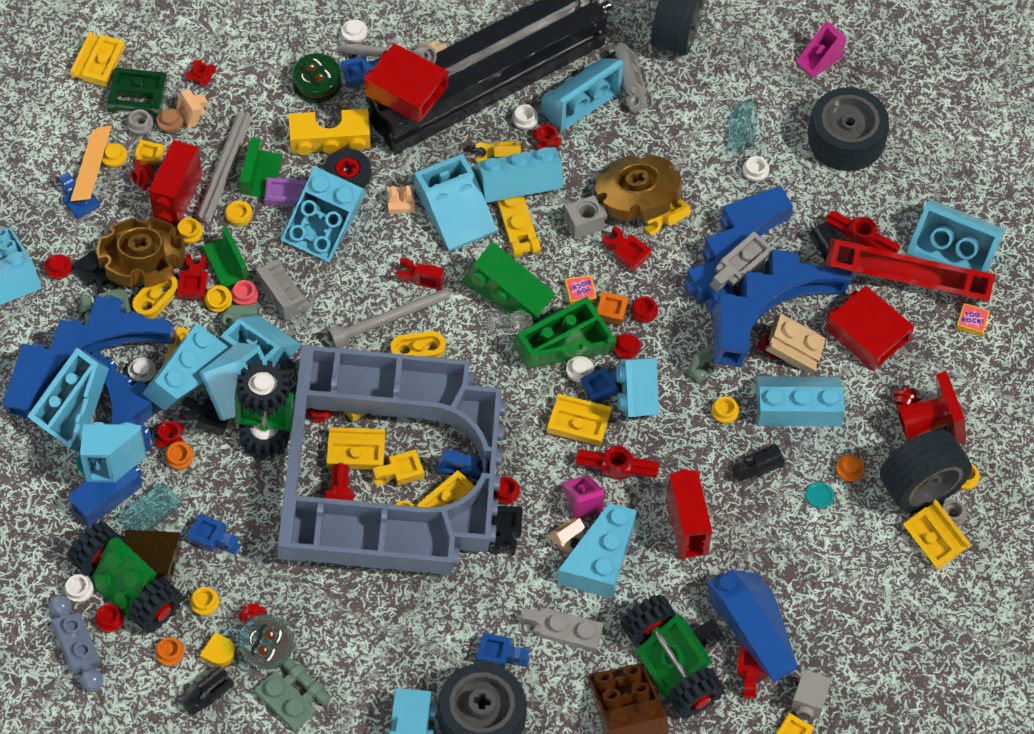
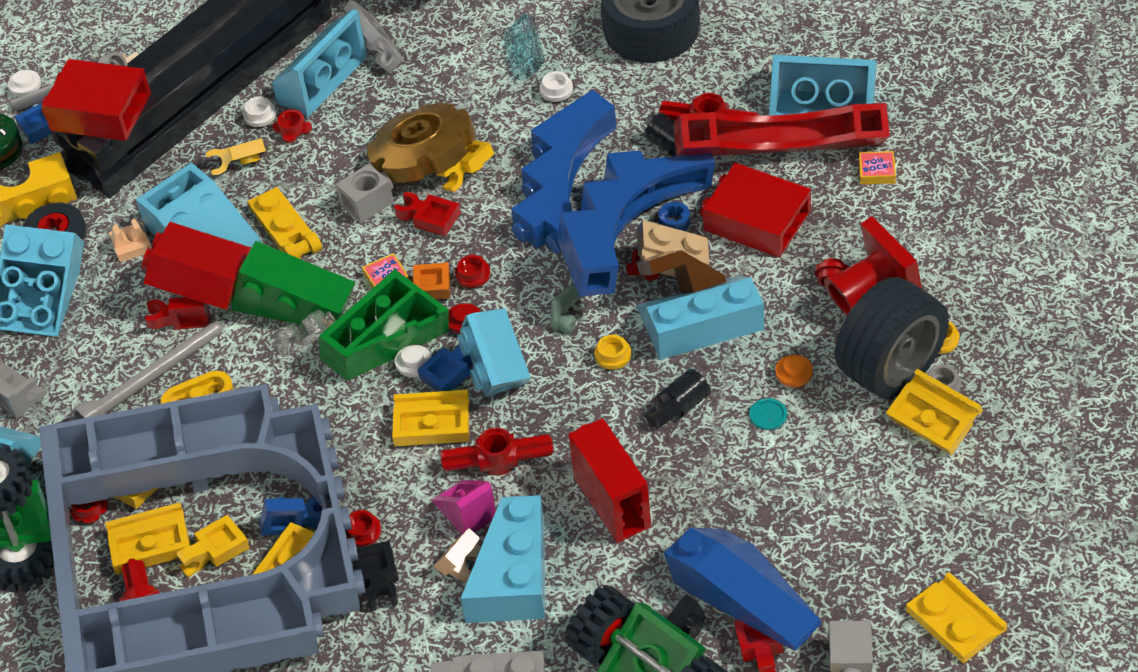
camera: 10 degrees left, 10 degrees down
(444, 243) = (194, 265): none -> red brick
(519, 174) = (269, 166): medium azure slope -> none
(741, 259) = (567, 182): light grey hinge -> none
(801, 370) = (689, 271): none -> reddish brown slope
(812, 306) = (676, 209): none -> blue bush
(893, 692) = (956, 617): none -> yellow plate

